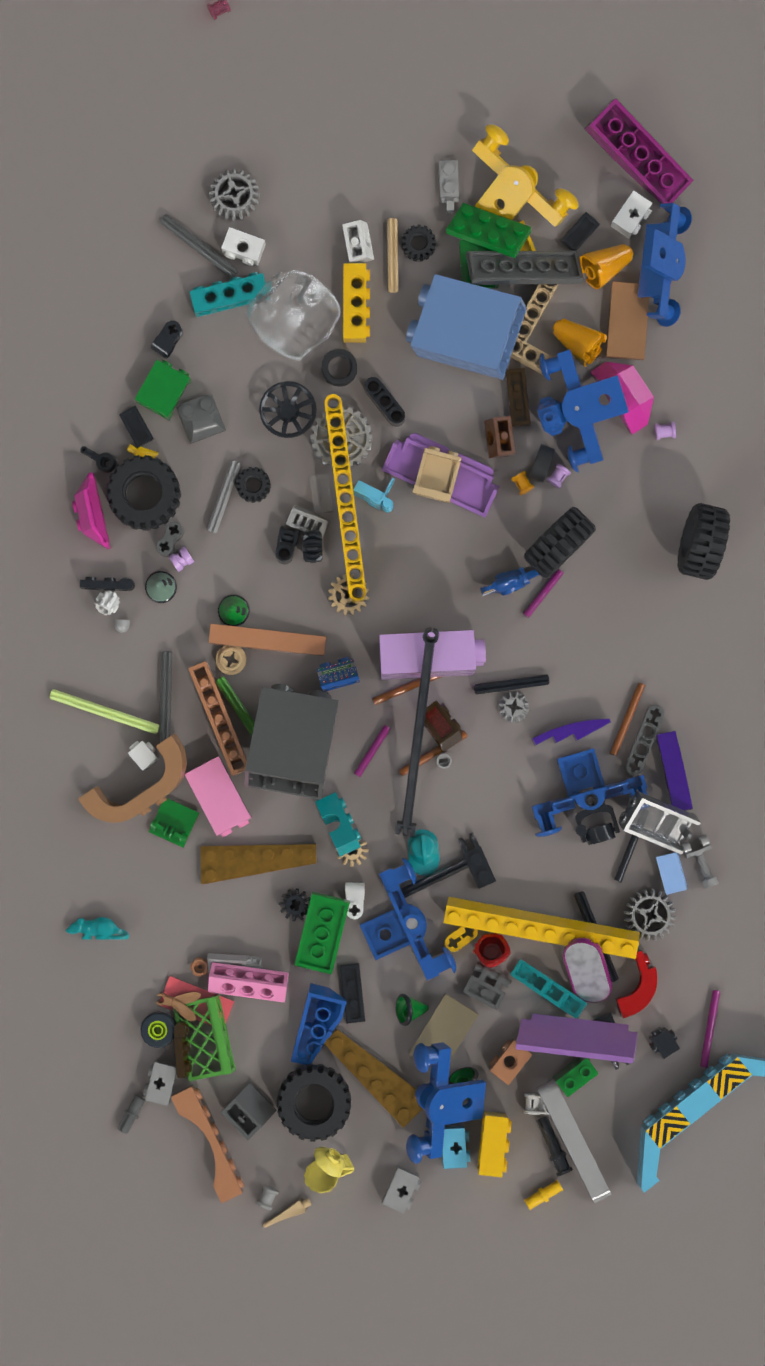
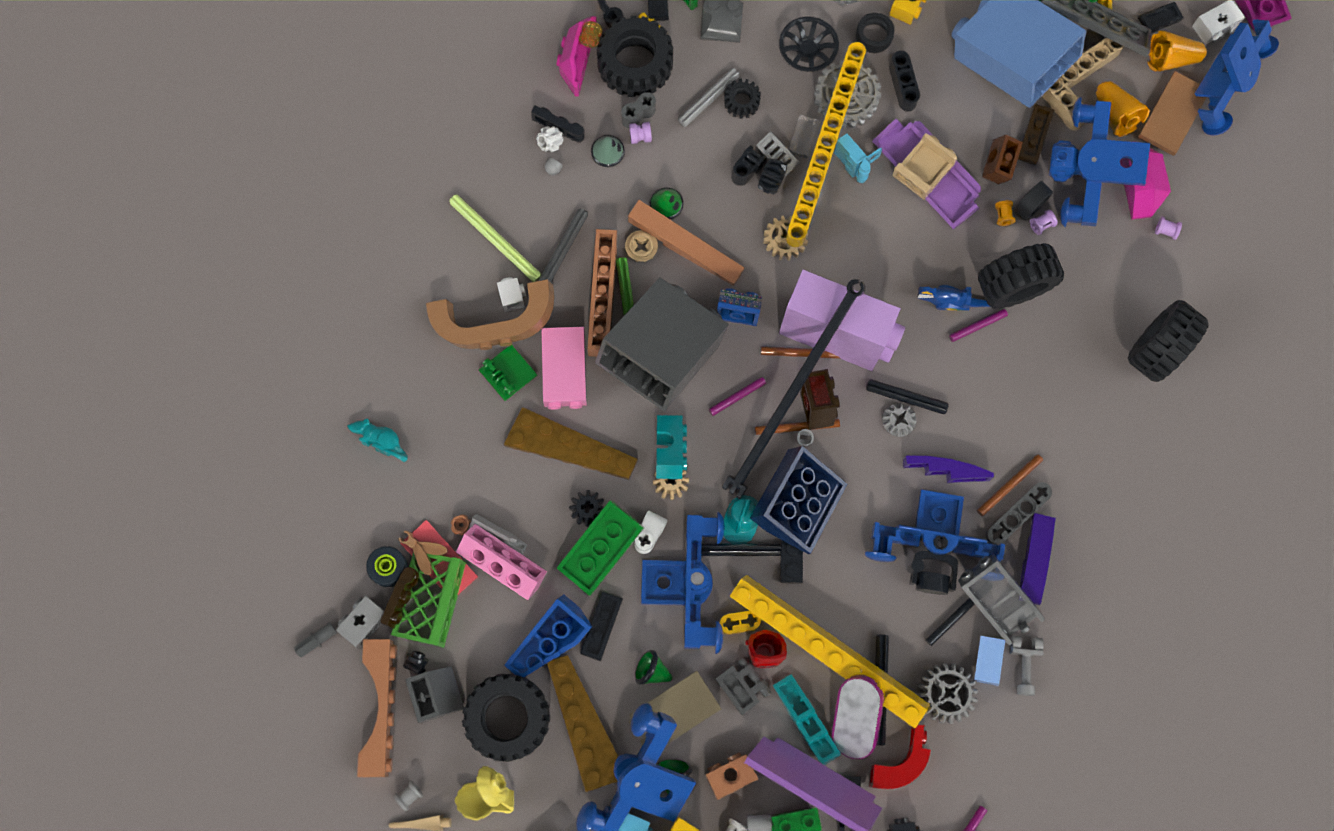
camera: 25 degrees right, 10 degrees down
(98, 496) = (590, 34): none -> clear yellow wheel
(220, 1093) = (416, 662): none -> black plate
(462, 816) = (799, 499): none -> dark blue slope

